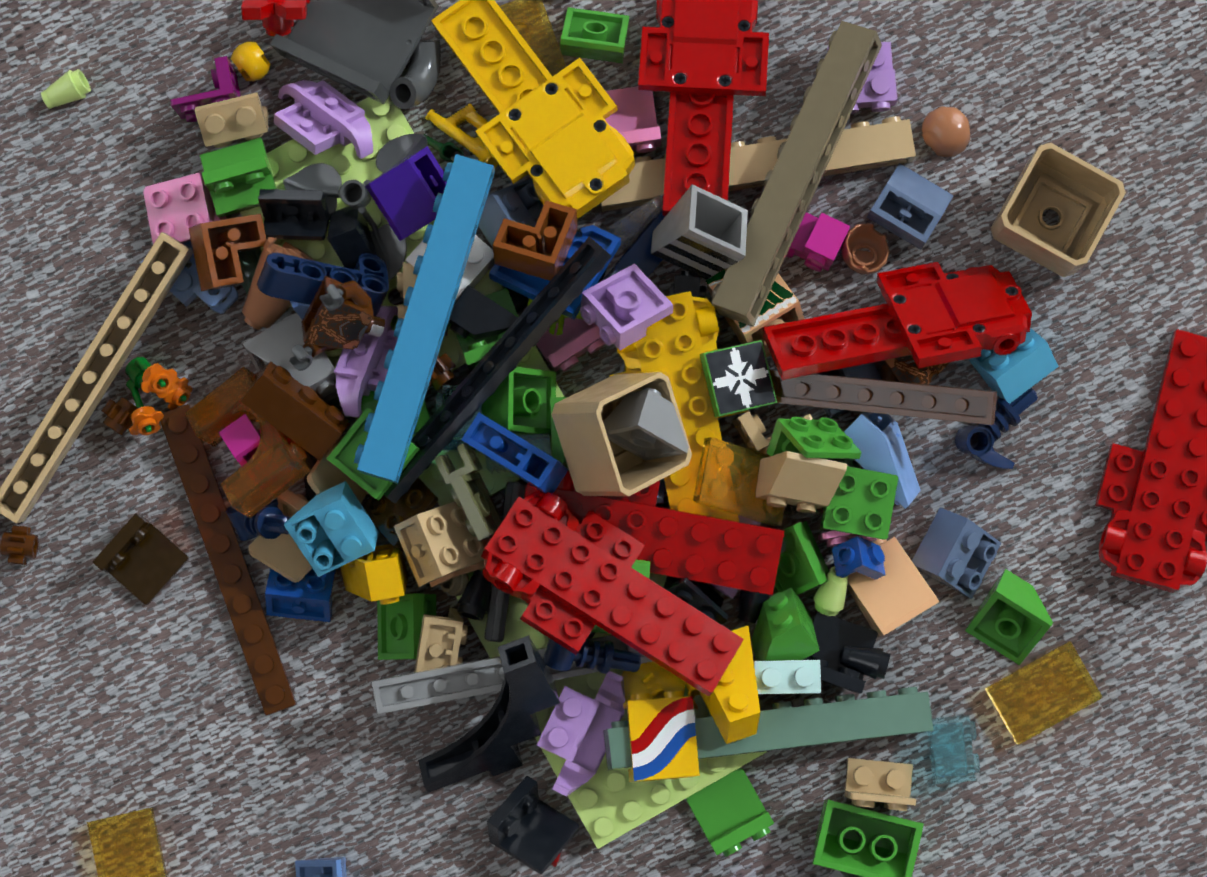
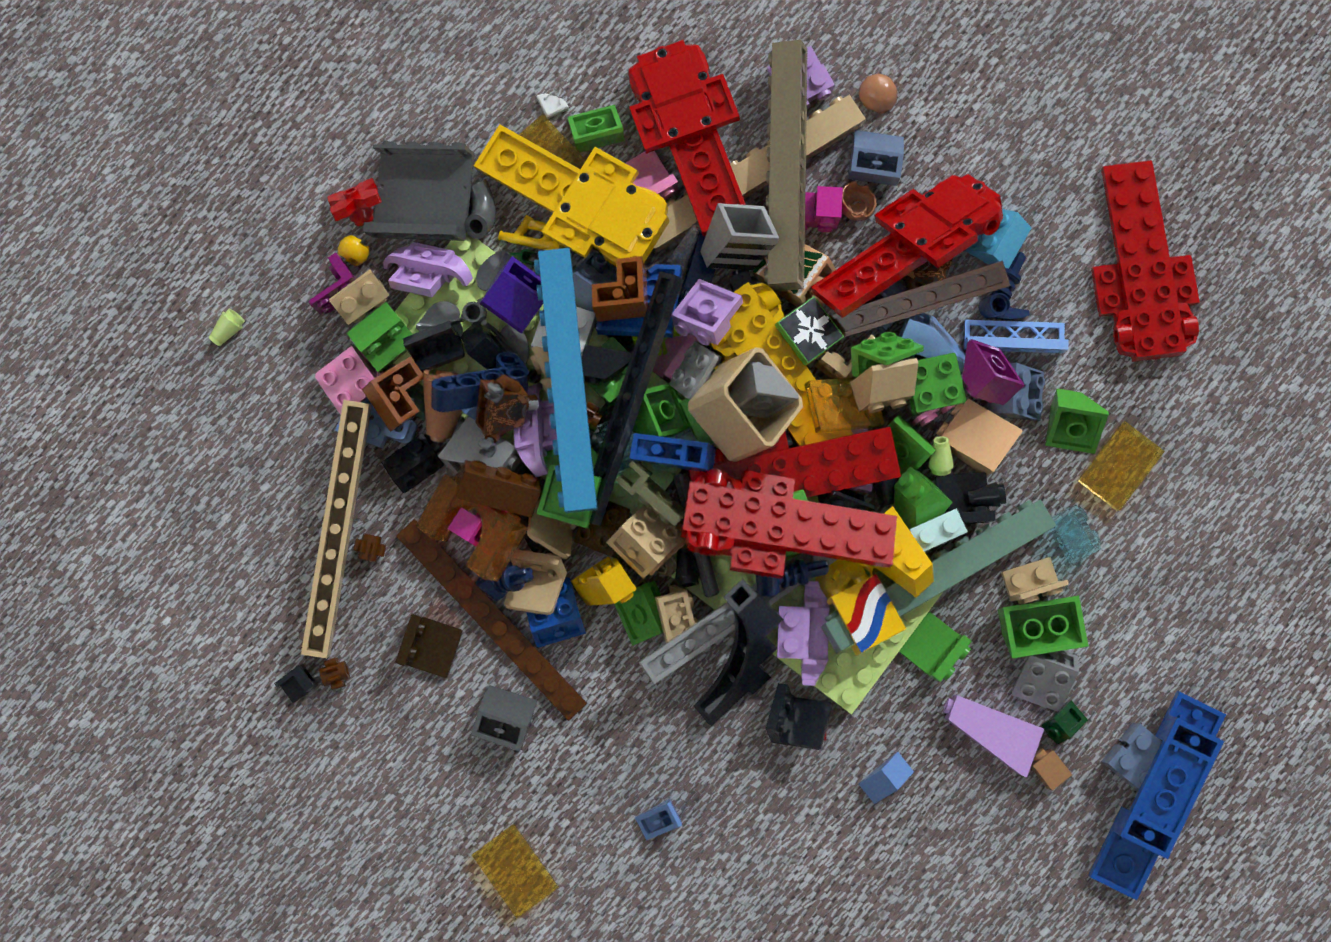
camera: 25 degrees left, 0 degrees up
(156, 380) = (384, 510): orange plant -> none
(192, 680) = (504, 718): none -> dark grey slope
(212, 339) = (412, 463): none -> black bracket
(333, 529) = (562, 564): medium azure slope -> none
(584, 368) = (694, 370): none -> light grey bracket
(859, 556) = (949, 423): blue bracket -> none
(929, 518) = (989, 374): none -> magenta slope
(983, 497) = (1019, 344): none -> light blue fence
(1079, 195) = (991, 96): tan plate -> none

